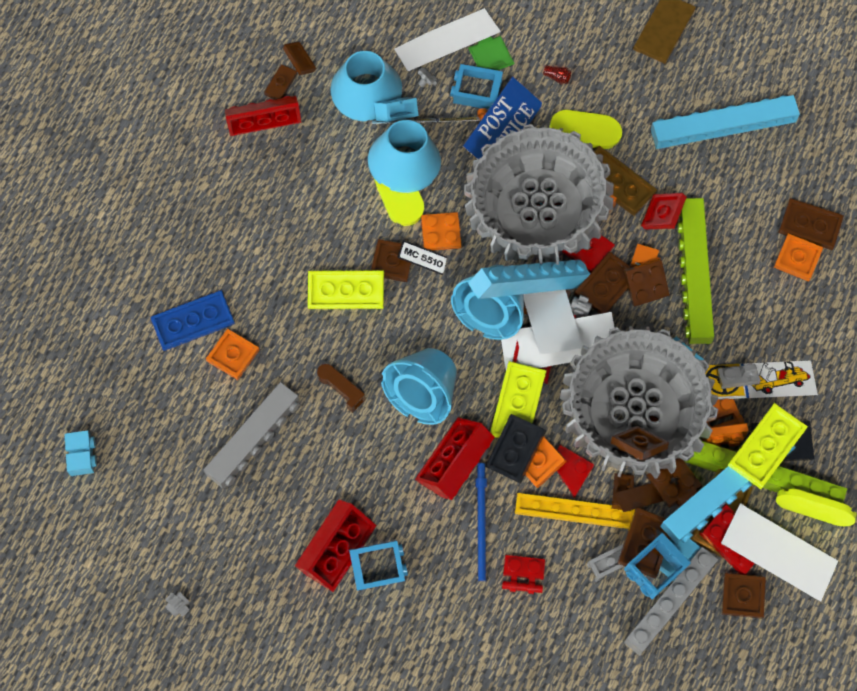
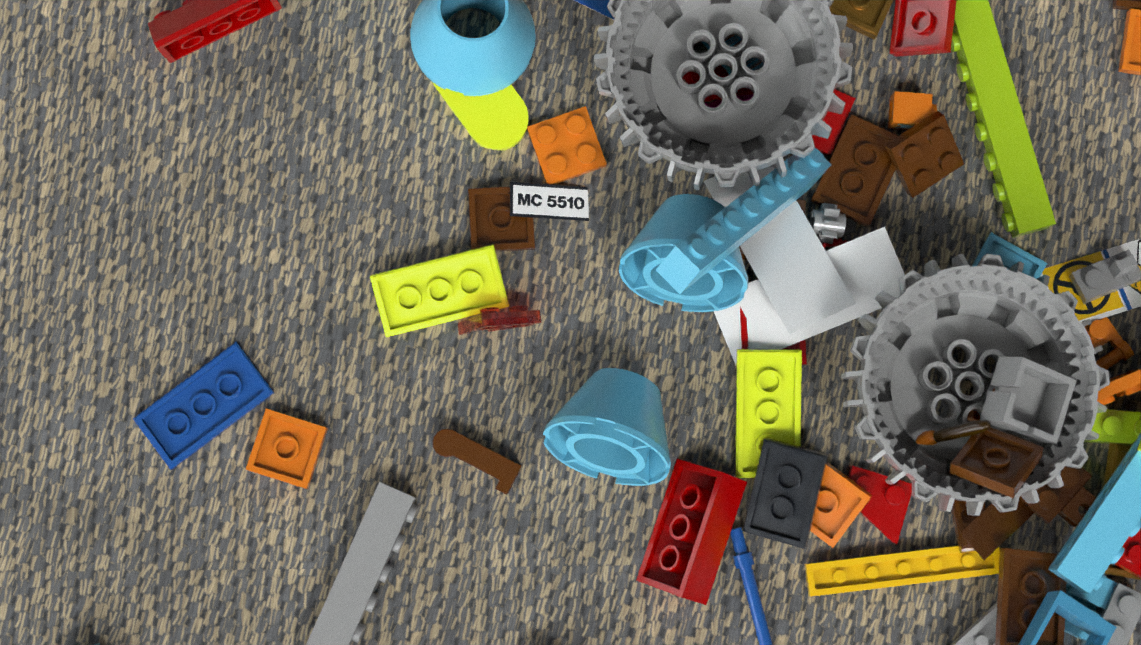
camera: 15 degrees left, 15 degrees up
(376, 313) = (492, 320): none -> clear red wing
(619, 426) = (953, 432): none -> dark brown piece
(667, 415) = (1028, 399): none -> light grey piece

